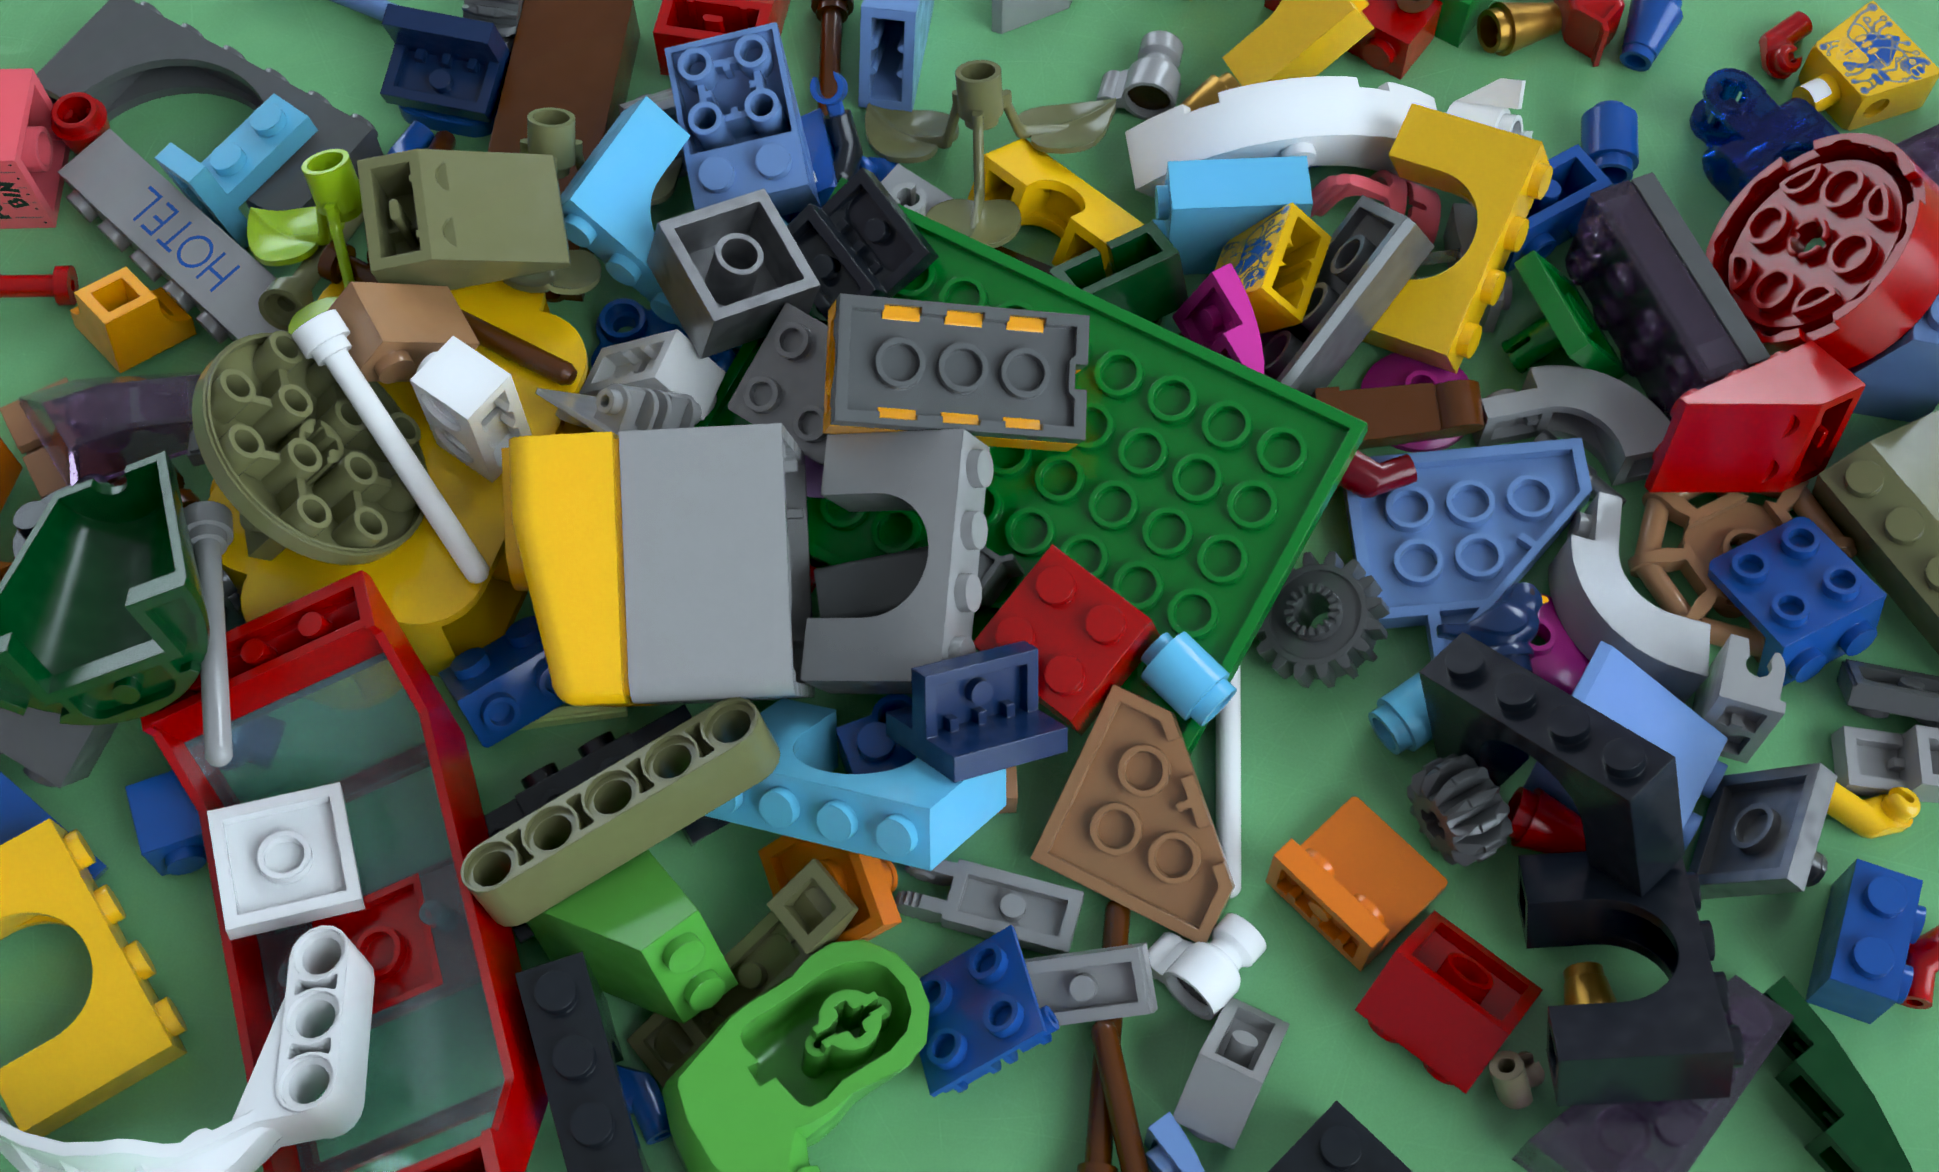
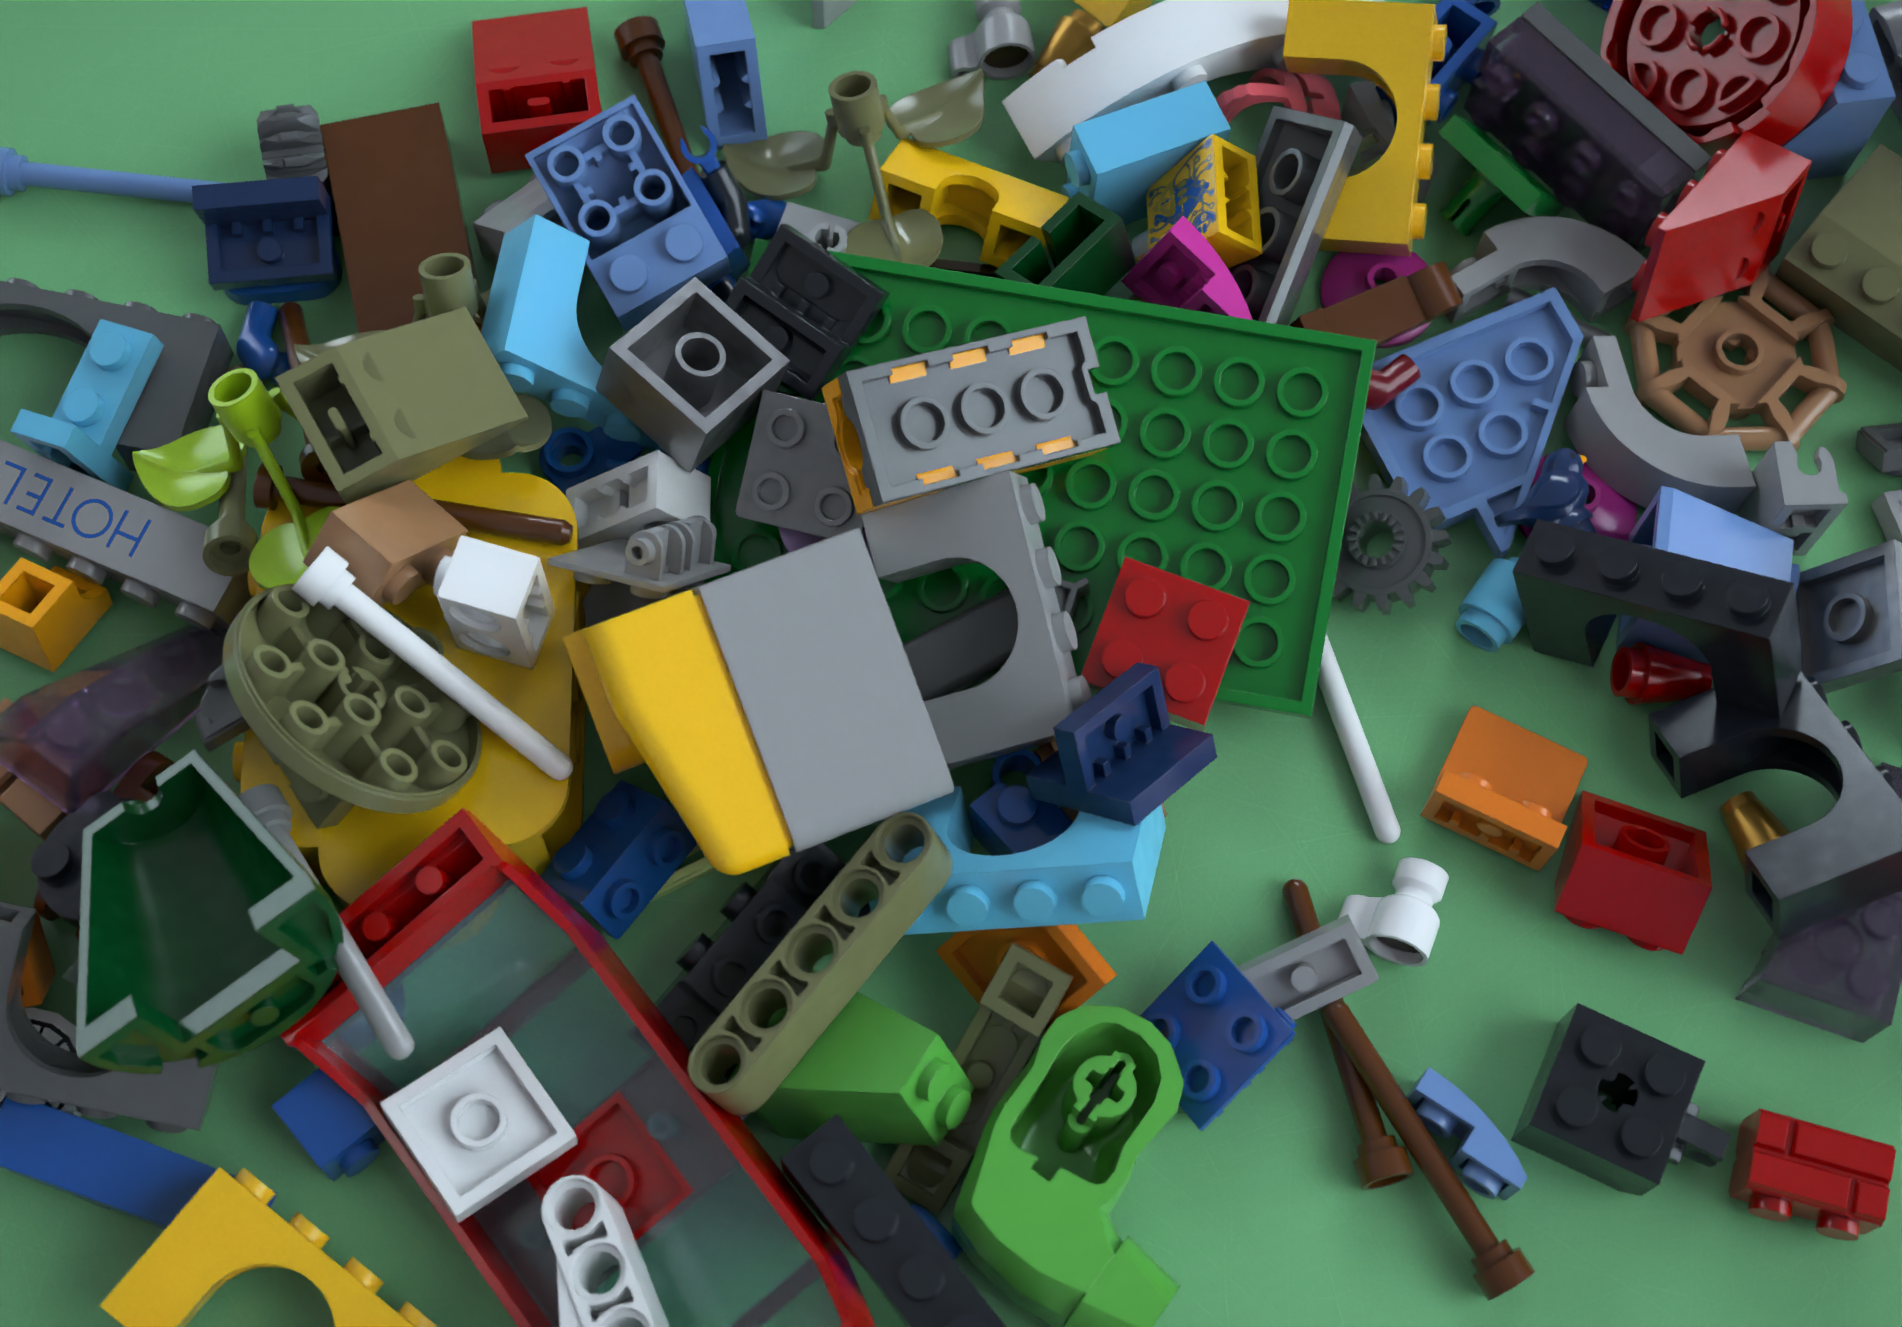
camera: 25 degrees left, 5 degrees up
(991, 899) = (1187, 920): light grey hinge -> none
(1139, 821) = (1289, 799): medium nougat plate -> none
(1187, 677) = (1293, 645): medium azure brick -> none
(1230, 1073) = (1464, 1010): light grey slope -> none
(1459, 809) = (1578, 687): dark grey gear -> none
(1514, 1077) = (1718, 925): dark tan arm -> none
(1800, 597) = (1804, 379): blue bracket -> none

